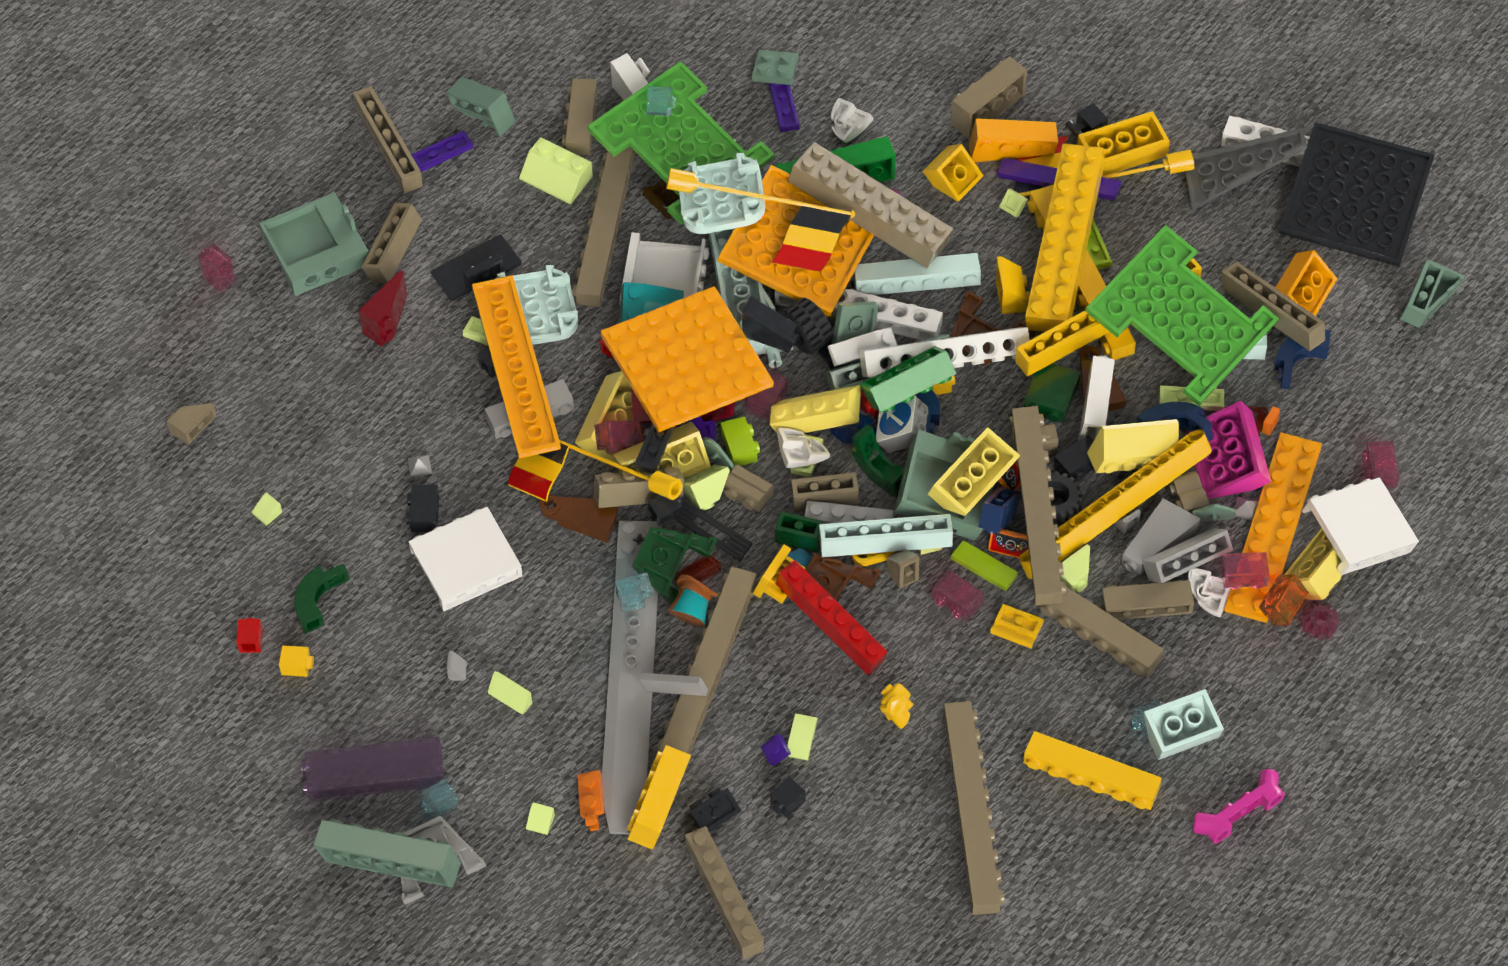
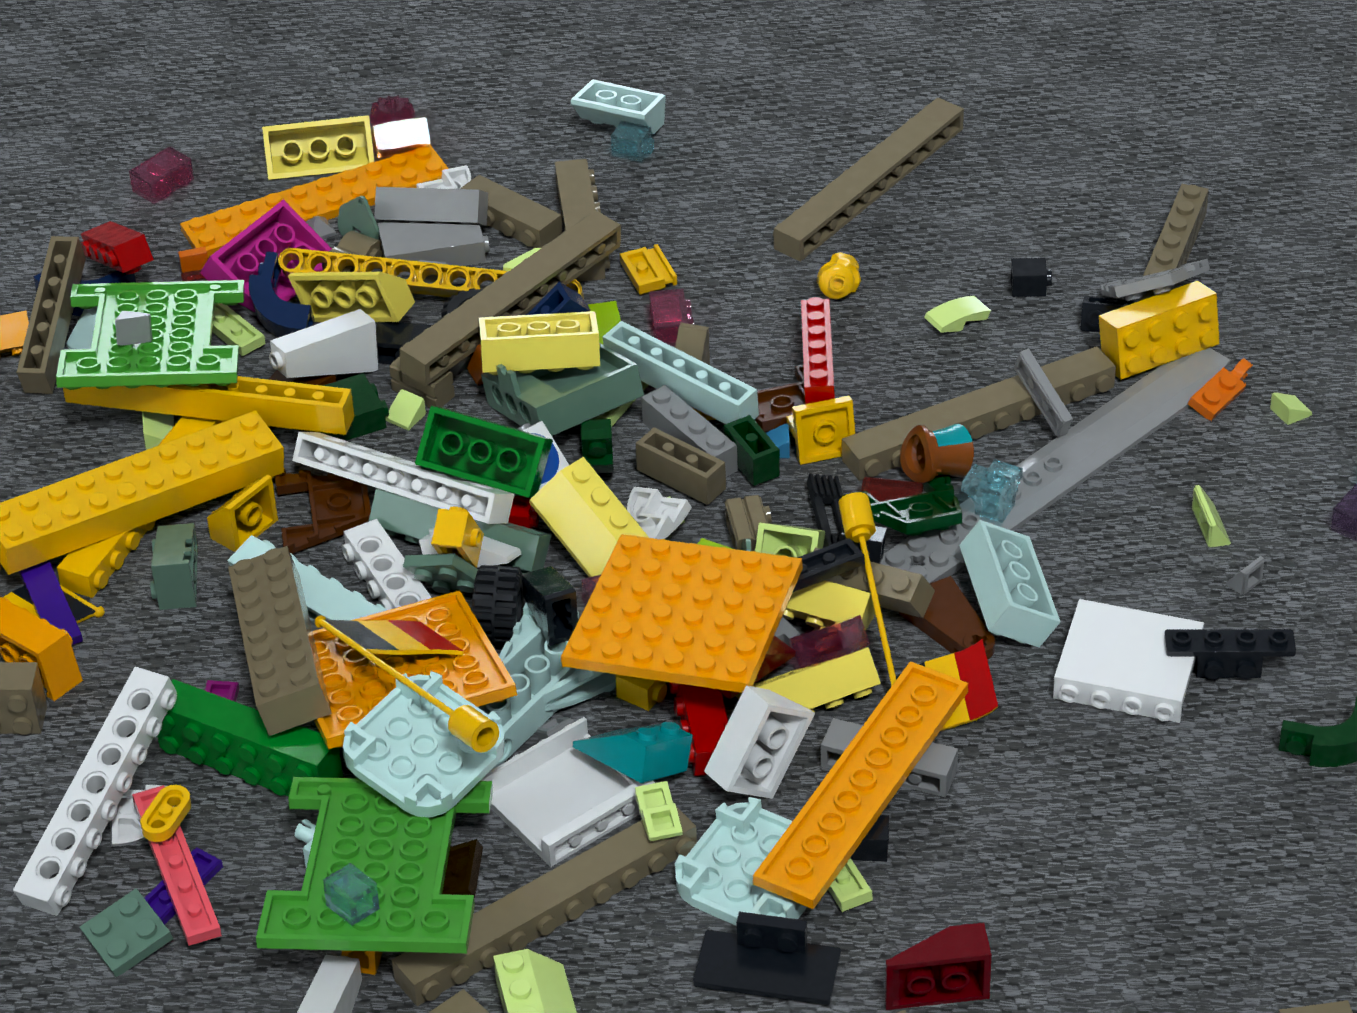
camera: 135 degrees left, 15 degrees down
(267, 509) = (1312, 870): yellowish green slope -> none
(415, 595) = (1229, 651): none -> black bracket
(419, 466) = (1077, 799): light grey slope -> none
(423, 508) = (1123, 738): black brick -> none
(565, 544) = (1009, 584): none -> light aqua brick
(583, 335) = (758, 743): none -> white slope
(596, 281) = (658, 811): none -> yellowish green slope
(689, 811) = (1158, 282): none -> light grey wing
(775, 749) = (995, 317): dark purple plate -> none
(790, 102) = (181, 879): none -> coral plate
(816, 108) = (161, 818): none -> yellow plate
(852, 316) = (458, 534): none -> yellow brick
(861, 91) = (81, 800): none -> white brick
(953, 172) = (112, 669): yellow slope -> none
(1002, 235) = (175, 566): none -> sand green wedge
(1013, 203) = (112, 595): yellowish green plate -> none
(1092, 770) = (734, 140): yellow brick -> none
(1178, 286) = (133, 328): none -> light grey slope
(1220, 825) = (616, 47): dark pink plate -> none
(1245, 570) = (402, 164): clear pink brick -> none
(1308, 374) = (116, 247): none -> red brick
(1362, 524) = (256, 131): white panel -> none

